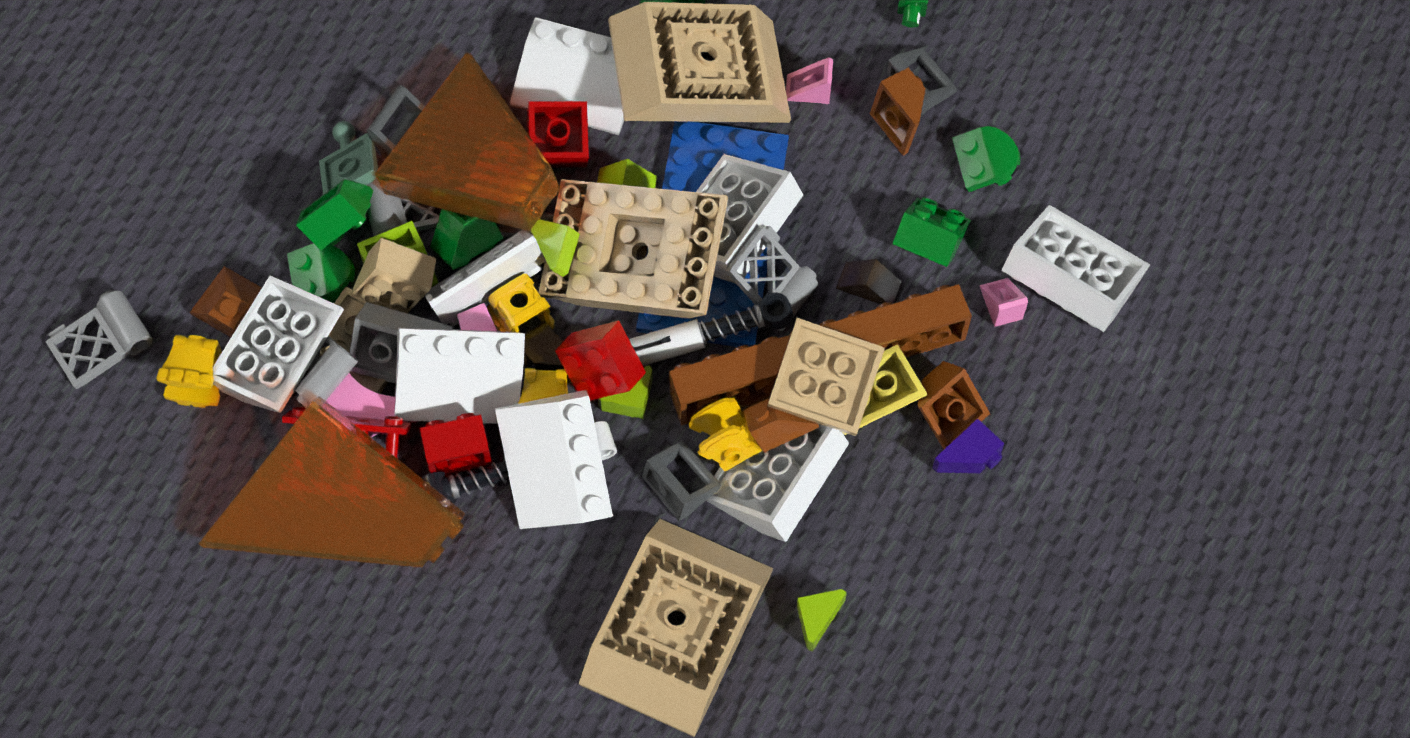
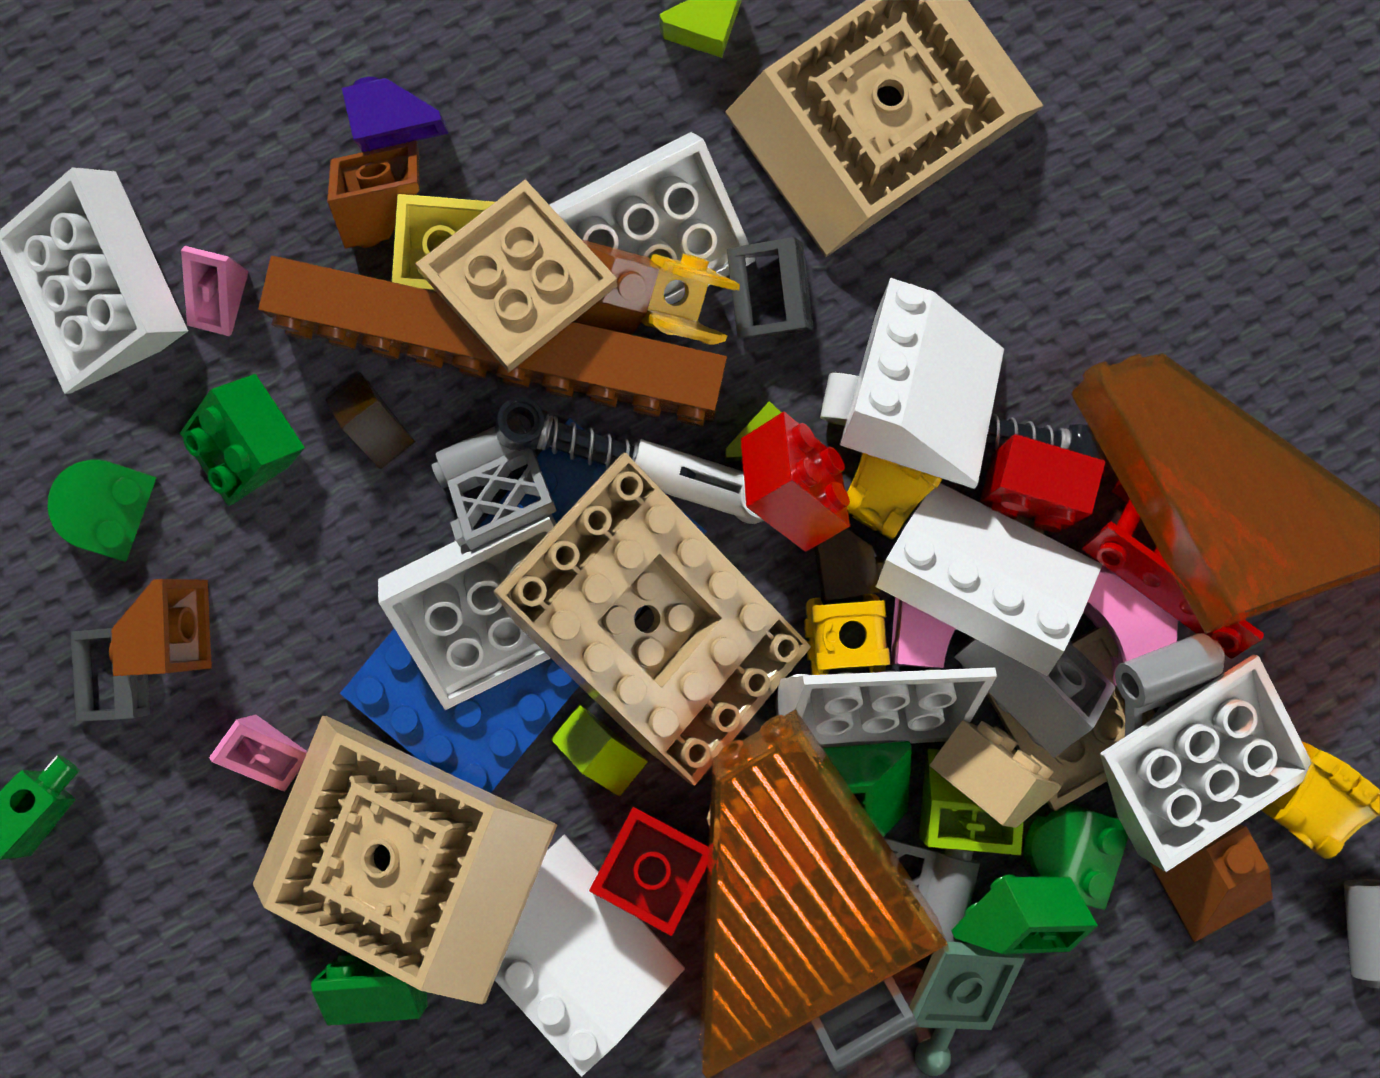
camera: 150 degrees left, 20 degrees up
(557, 244) = (761, 683): lime slope -> none

